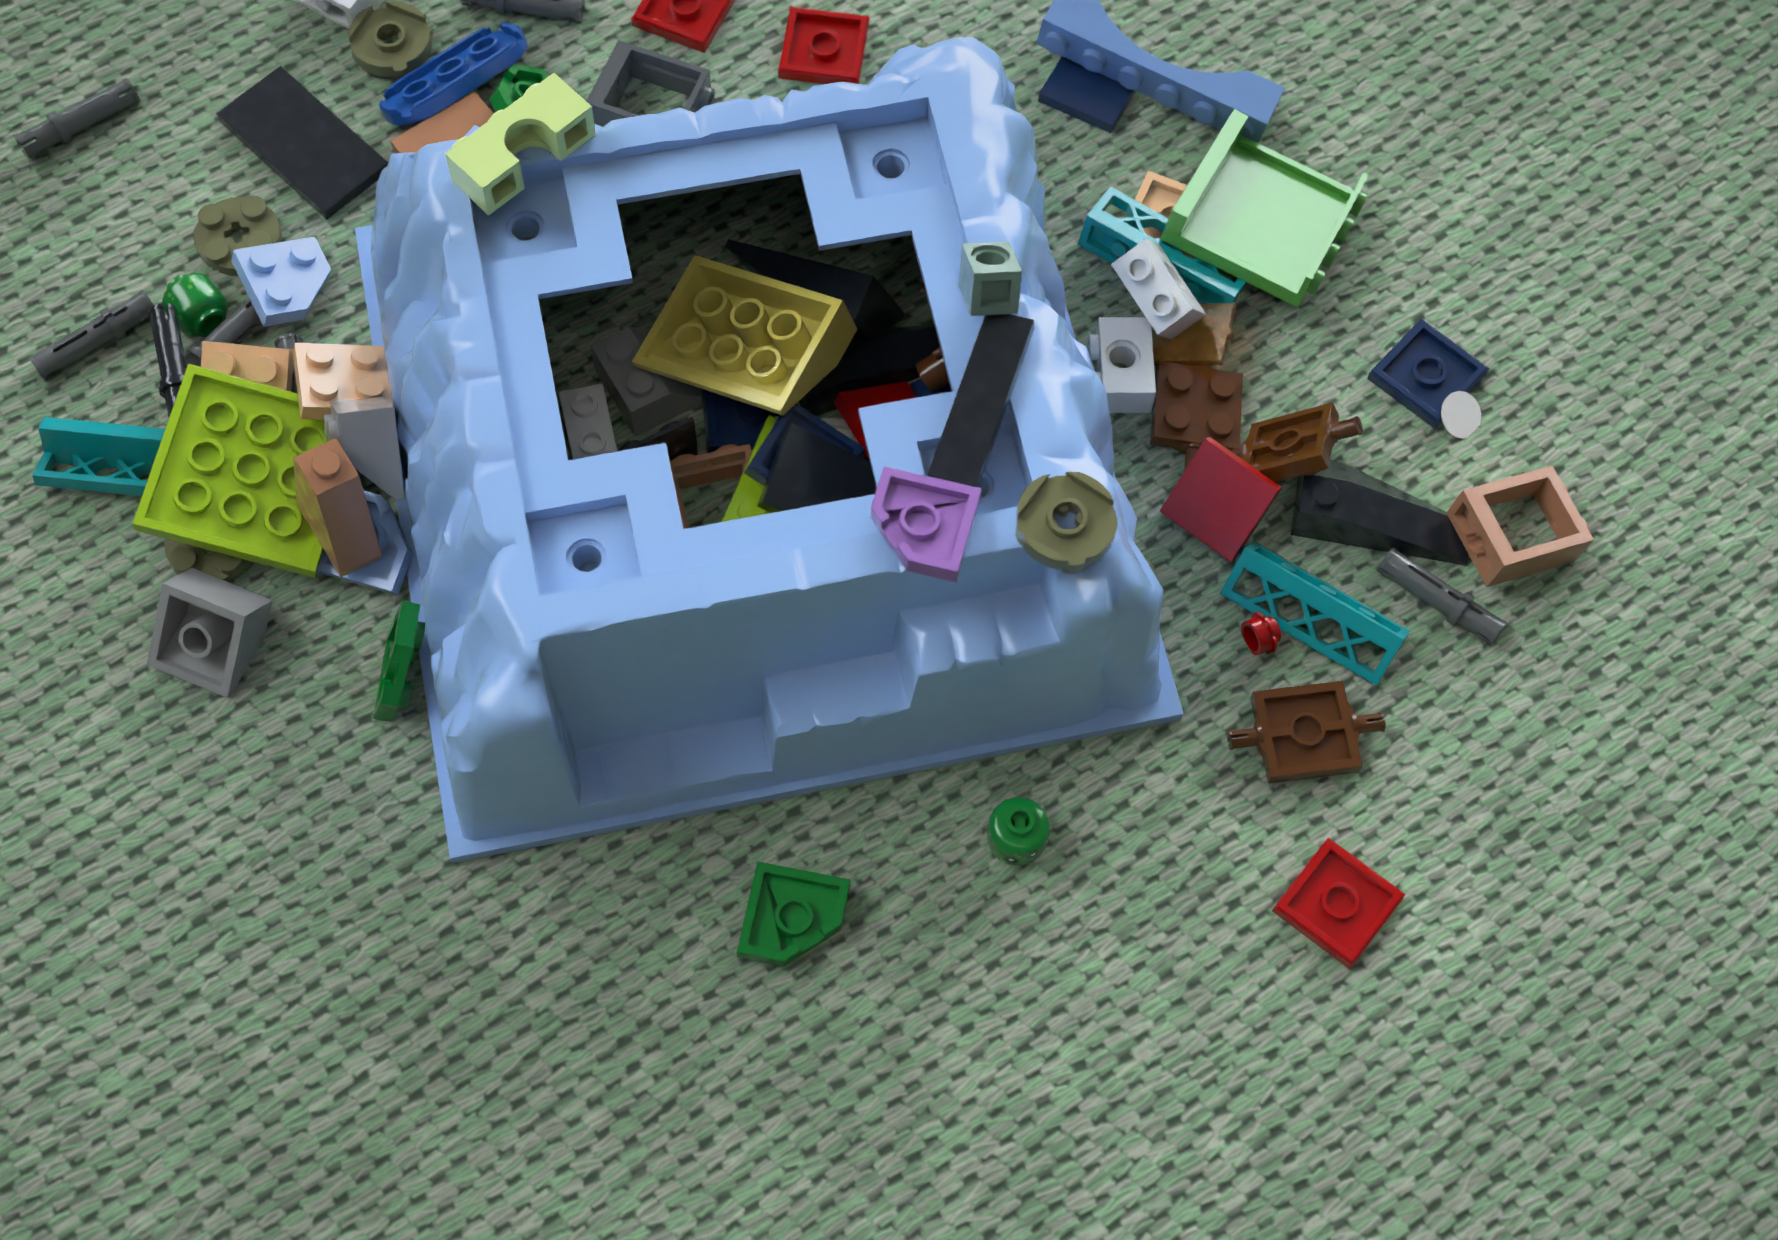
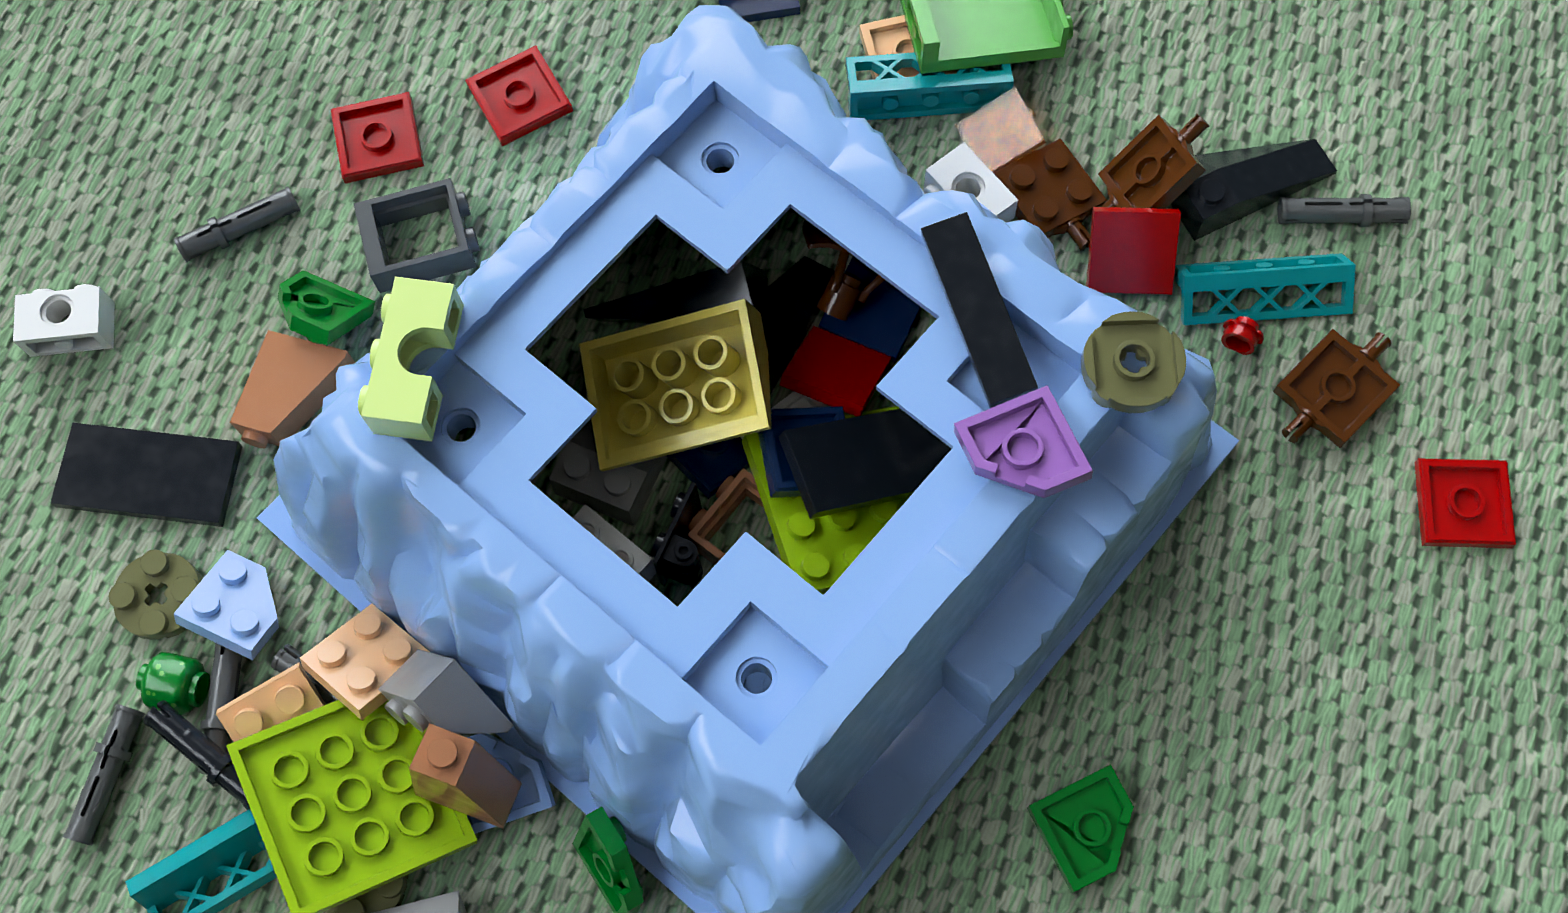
camera: 30 degrees left, 5 degrees up
(395, 58) = (162, 353): olive plate -> none
(452, 74) = (233, 328): blue tile -> none
(990, 278) = (906, 201): sand green brick -> none
(1018, 831) = (1202, 627): green head -> none
(1158, 289) = (956, 115): white brick -> none
(1425, 371) = (1189, 43): dark blue tile -> none
(1460, 414) = (1239, 58): white sticker -> none
(1494, 555) = (1360, 149): nougat window -> none

